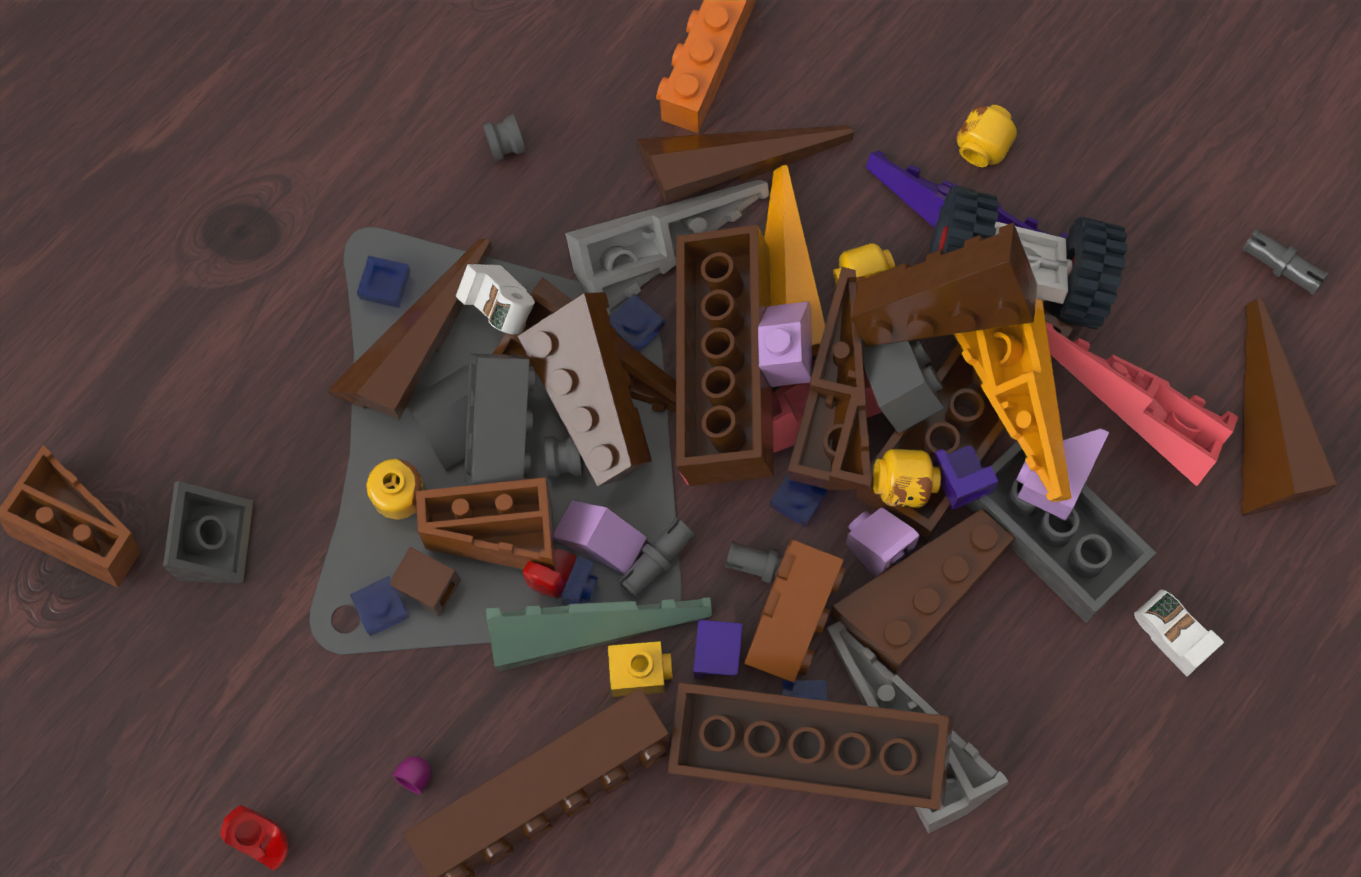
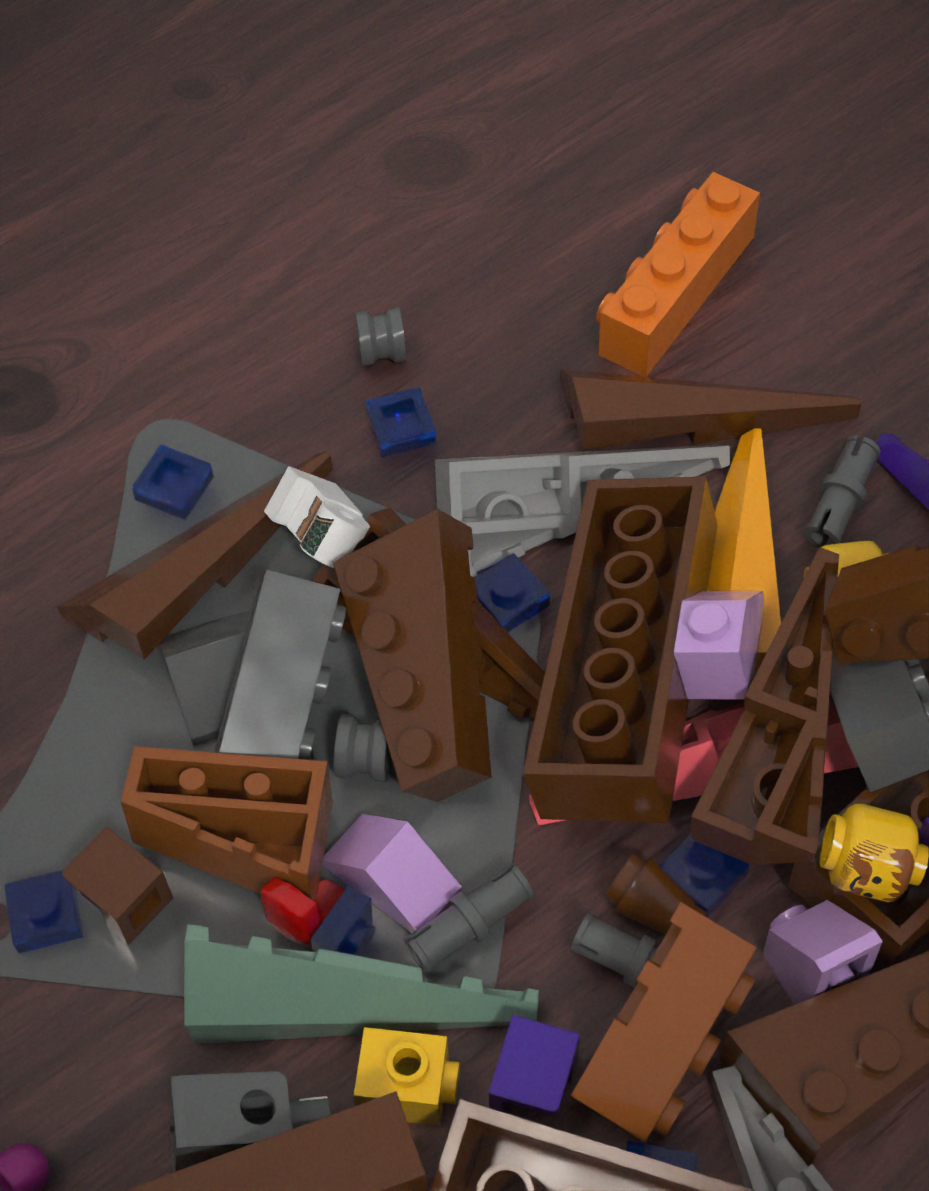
camera: 10 degrees right, 15 degrees down
(404, 478) = (103, 744): yellow head -> none
(525, 723) = (232, 1111): none -> dark grey torso
(533, 204) = (401, 422): none -> clear blue plate
(771, 522) = (648, 894): none -> reddish brown cone
(850, 205) = (842, 491): none -> dark grey pin

